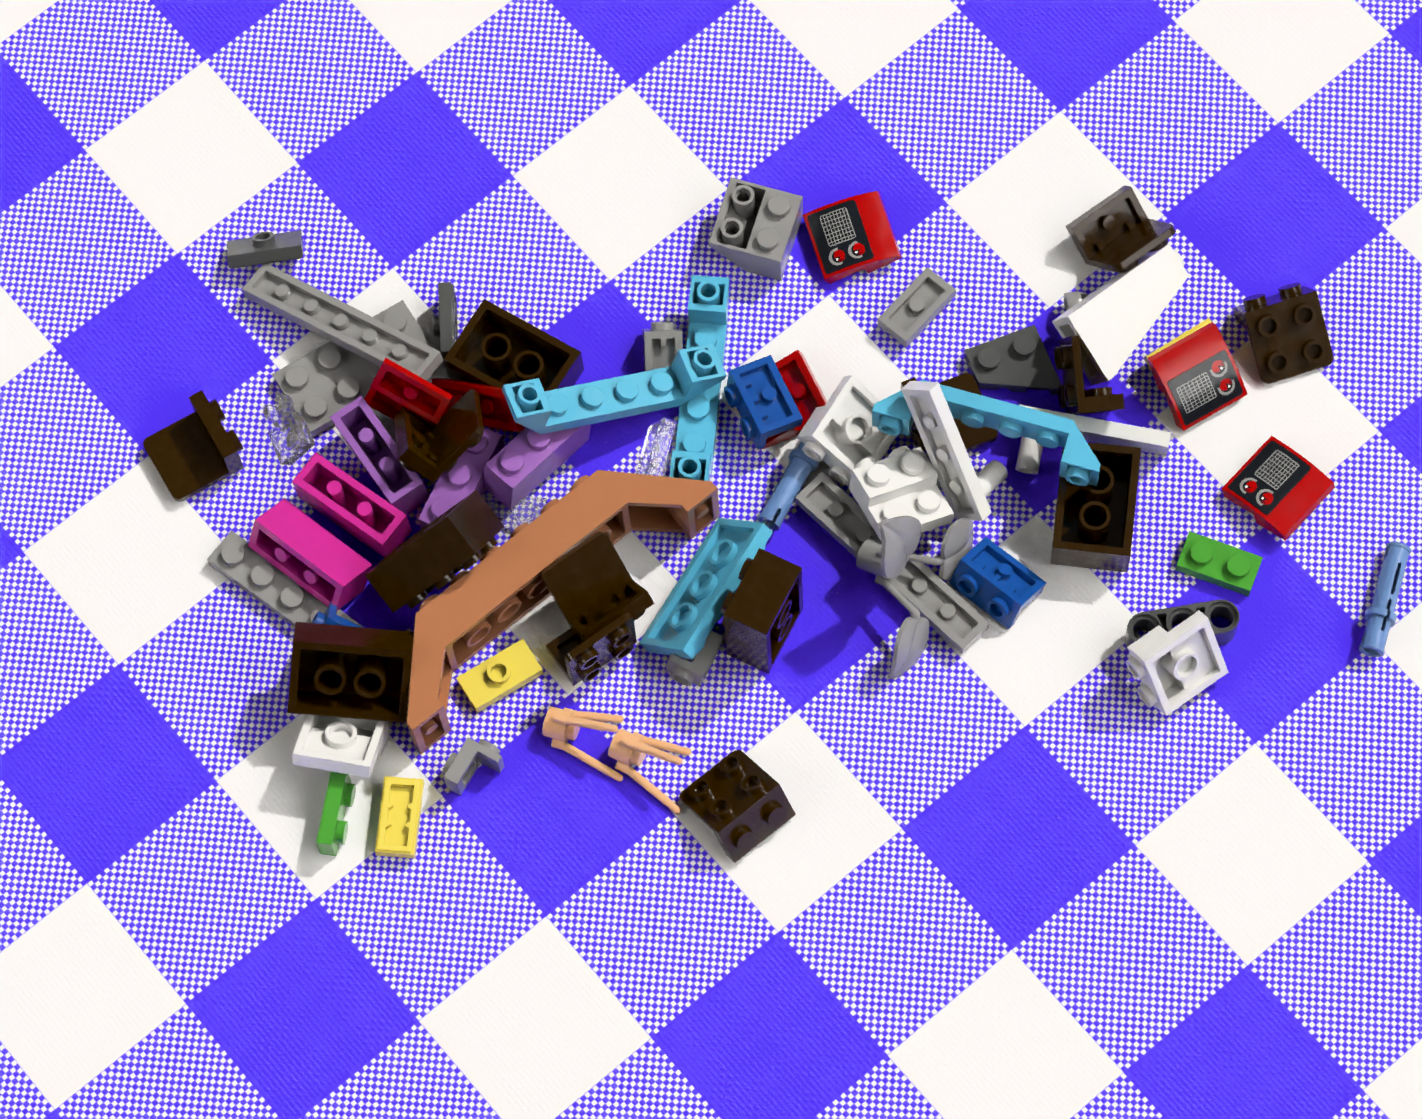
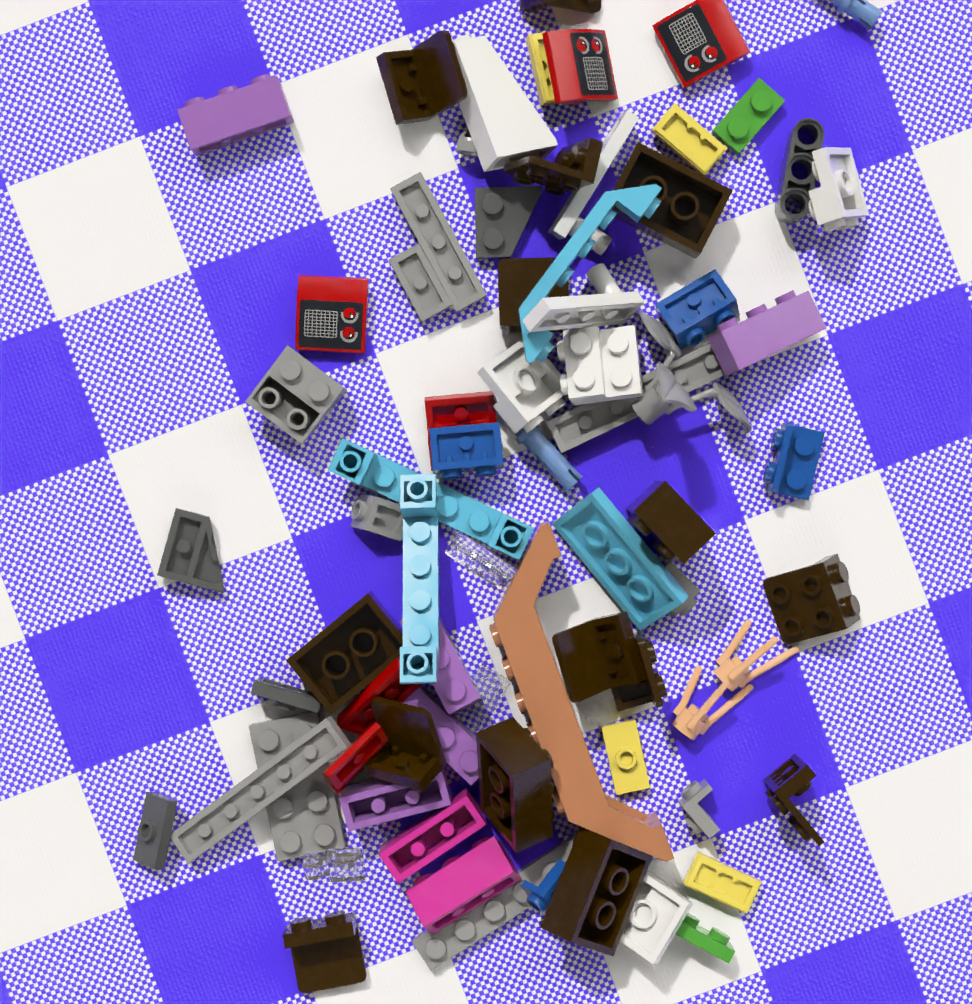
camera: 80 degrees left, 20 degrees up
(521, 828) = (788, 780): none -> dark brown bracket
(561, 188) = (191, 552): none -> dark grey wing
(876, 732) = (793, 460): none -> blue bracket
(964, 310) = (438, 242): none -> light grey plate
(999, 648) = (766, 331): none -> medium lavender brick
(1014, 81) = (235, 114): none -> medium lavender brick
(1169, 512) = (688, 139): none -> light yellow plate

